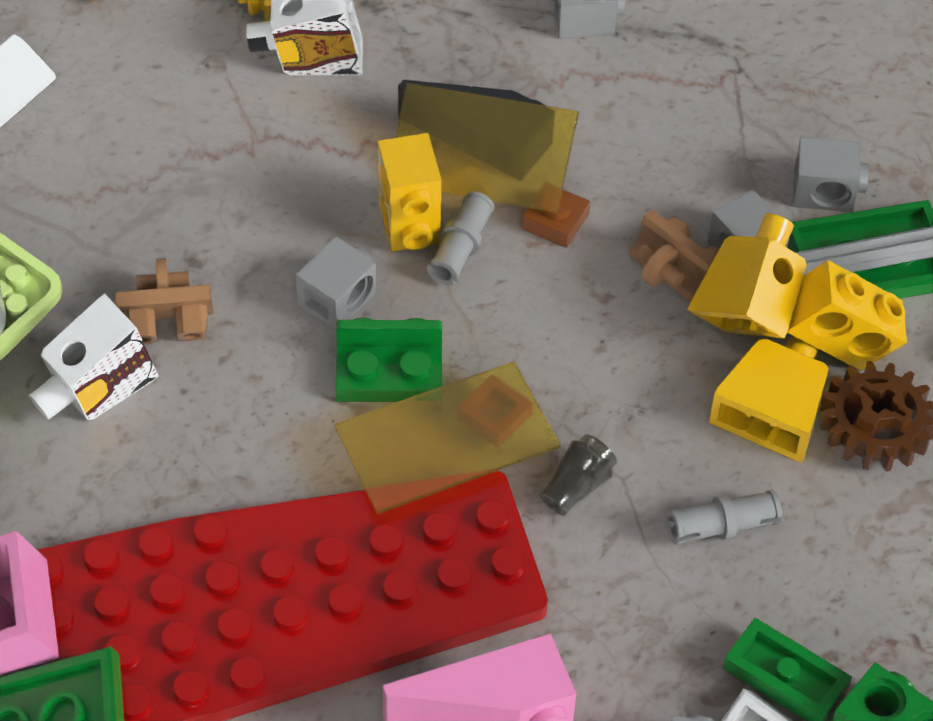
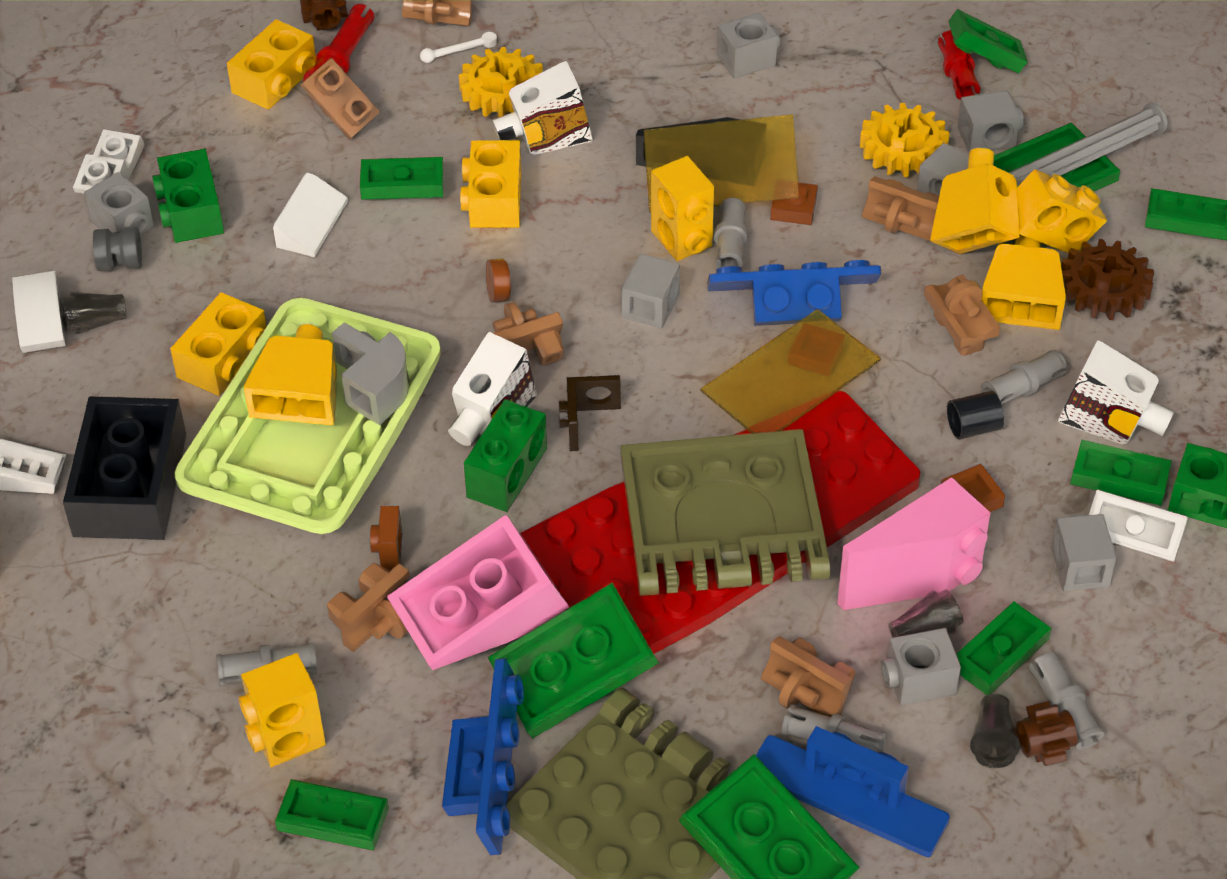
camera: 15 degrees left, 5 degrees down
(79, 445) = (505, 455): none -> green brick
(122, 67) = (402, 178): none -> green plate
(171, 223) = (498, 280): none -> dark orange tile
(191, 394) = (579, 401): none -> dark brown bracket
(218, 102) = (493, 184): none -> yellow brick
(283, 580) = (723, 504): none -> olive hinge
(387, 359) = (714, 334): green bracket -> none
(497, 334) = (791, 295): none -> blue bracket
(579, 473) = (902, 374): clear smoke cone -> none
(597, 647) = (981, 486): none -> dark orange plate
(644, 547) = (975, 414): none -> black beam
(683, 414) = (963, 313): none -> medium nougat hips
(714, 168) = (901, 138): none -> yellow gear
(814, 575) = (1114, 398): none -> white torso
(826, 91) = (958, 66): none -> red pin
(868, 71) = (993, 44): none -> green plate

